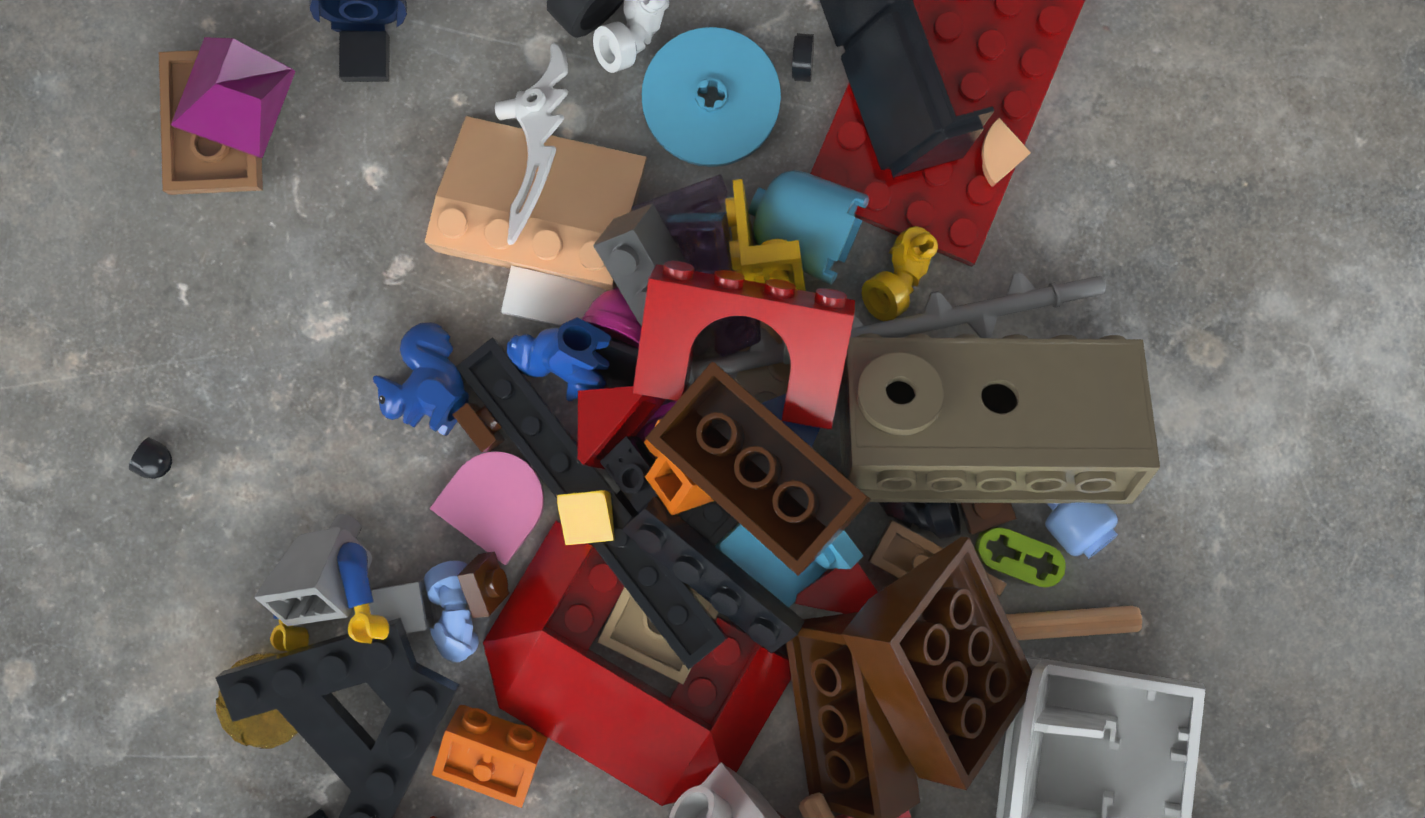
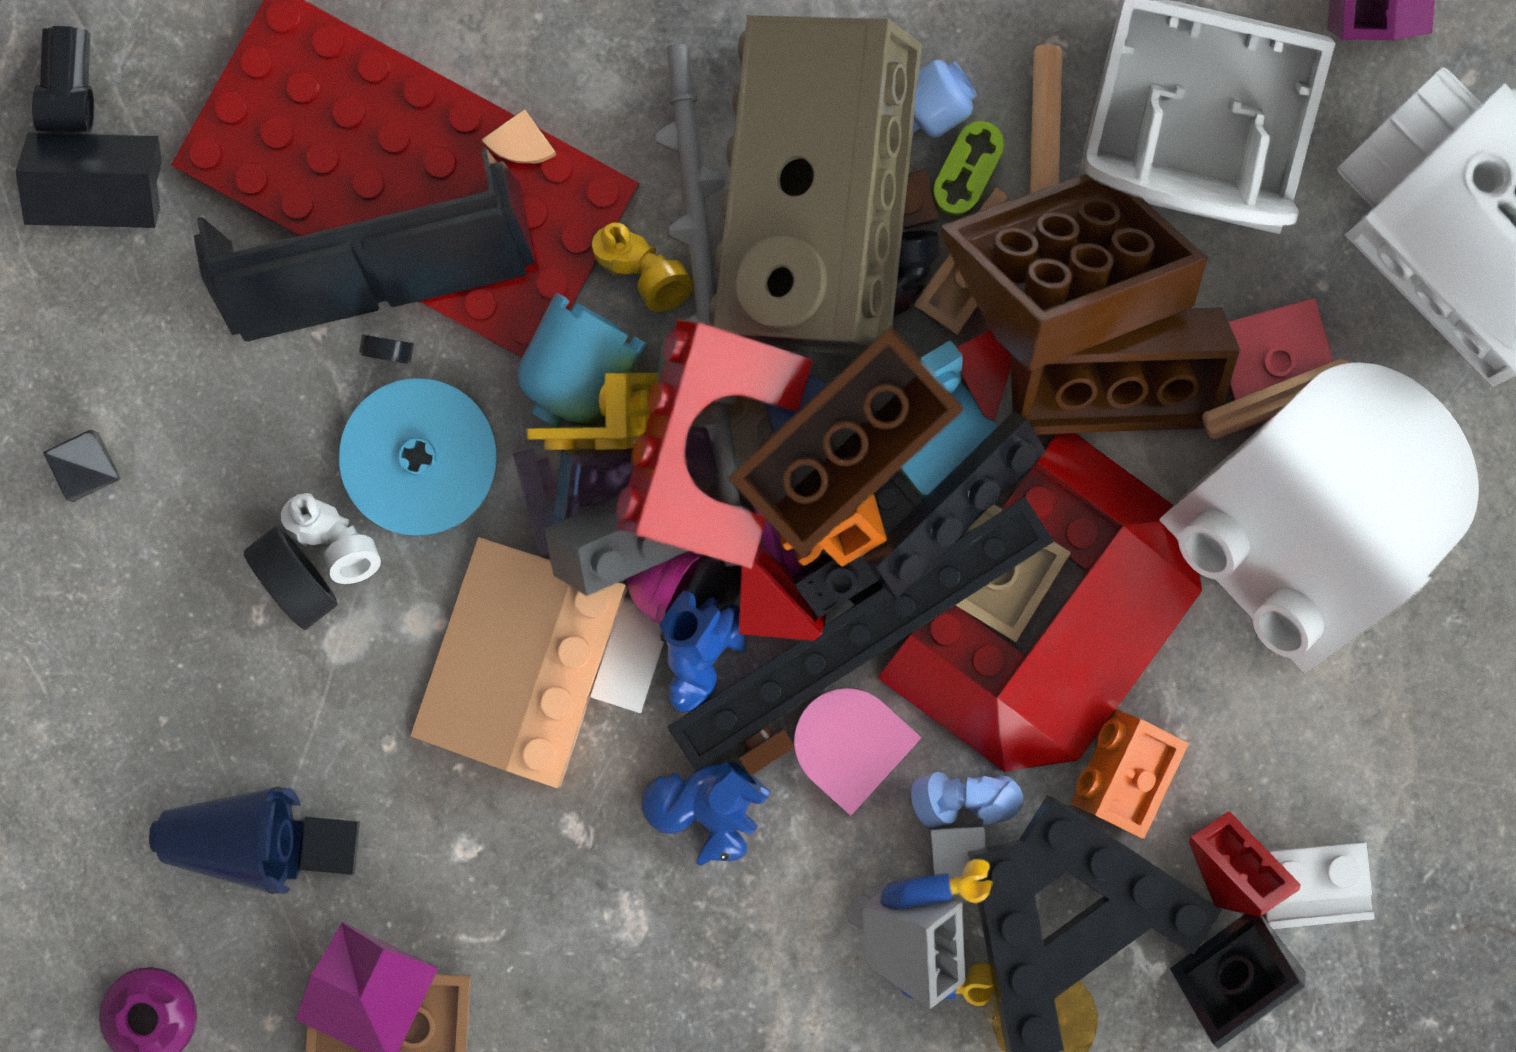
camera: 80 degrees left, 0 degrees up
(483, 584) = (940, 760): reddish brown plate -> none
(534, 114) = (417, 656): white piece -> none
(586, 517) = (879, 636): yellow slope -> none

